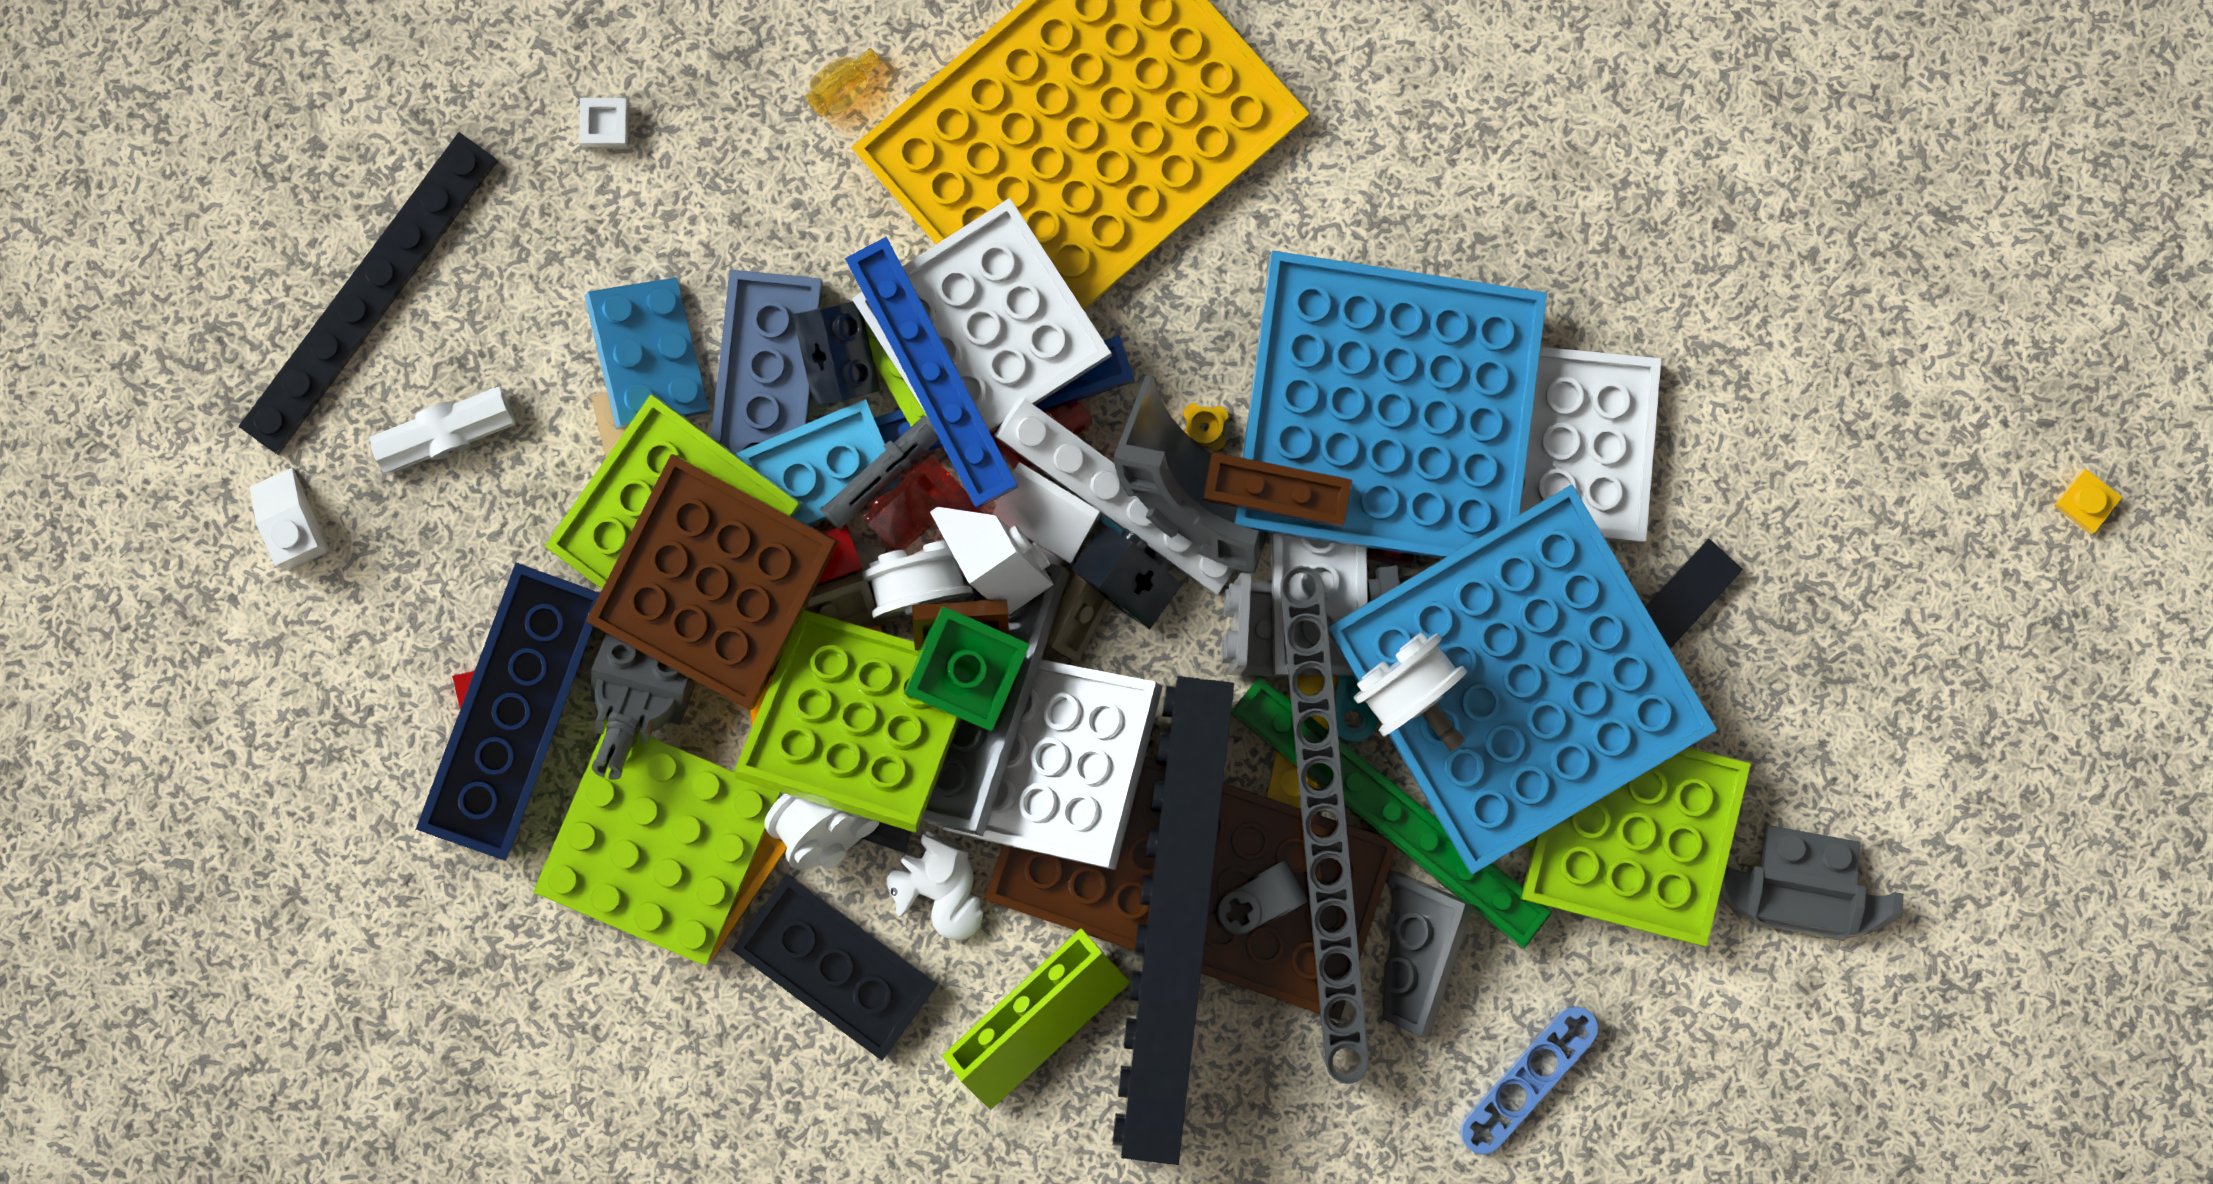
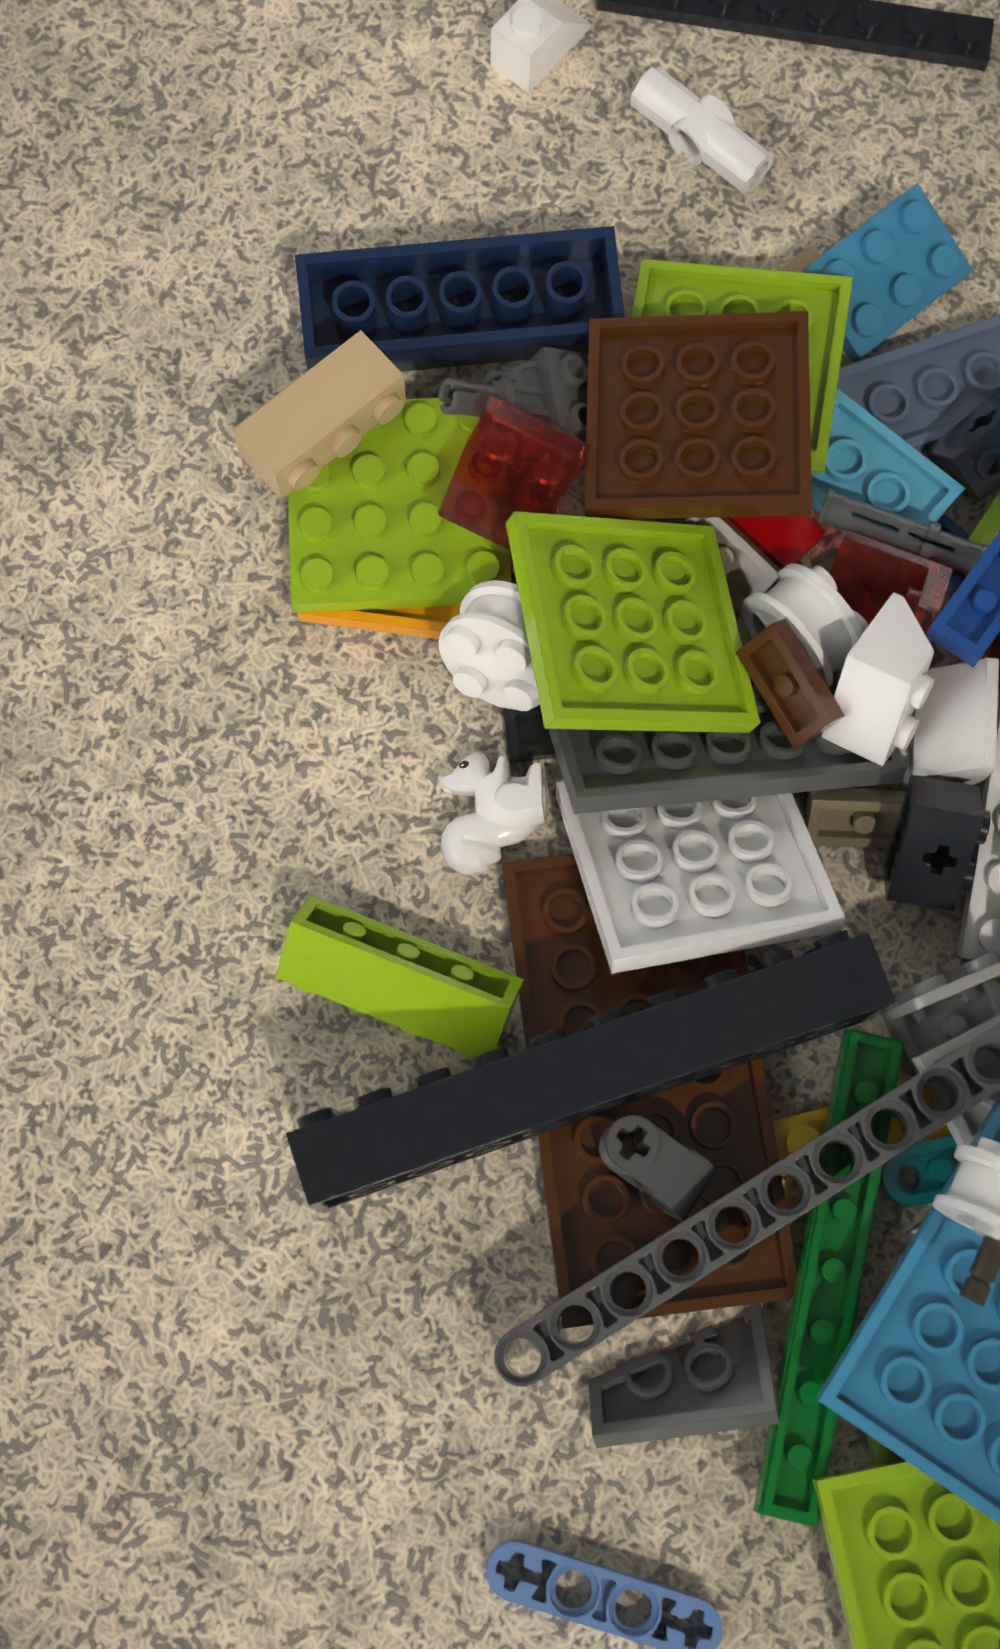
camera: 60 degrees right, 10 degrees down
(569, 873) = (321, 415): none -> tan brick
(692, 753) = (510, 467): none -> clear red bracket
(834, 967) = (352, 745): black plate -> none
(966, 668) = (750, 704): green slope -> none

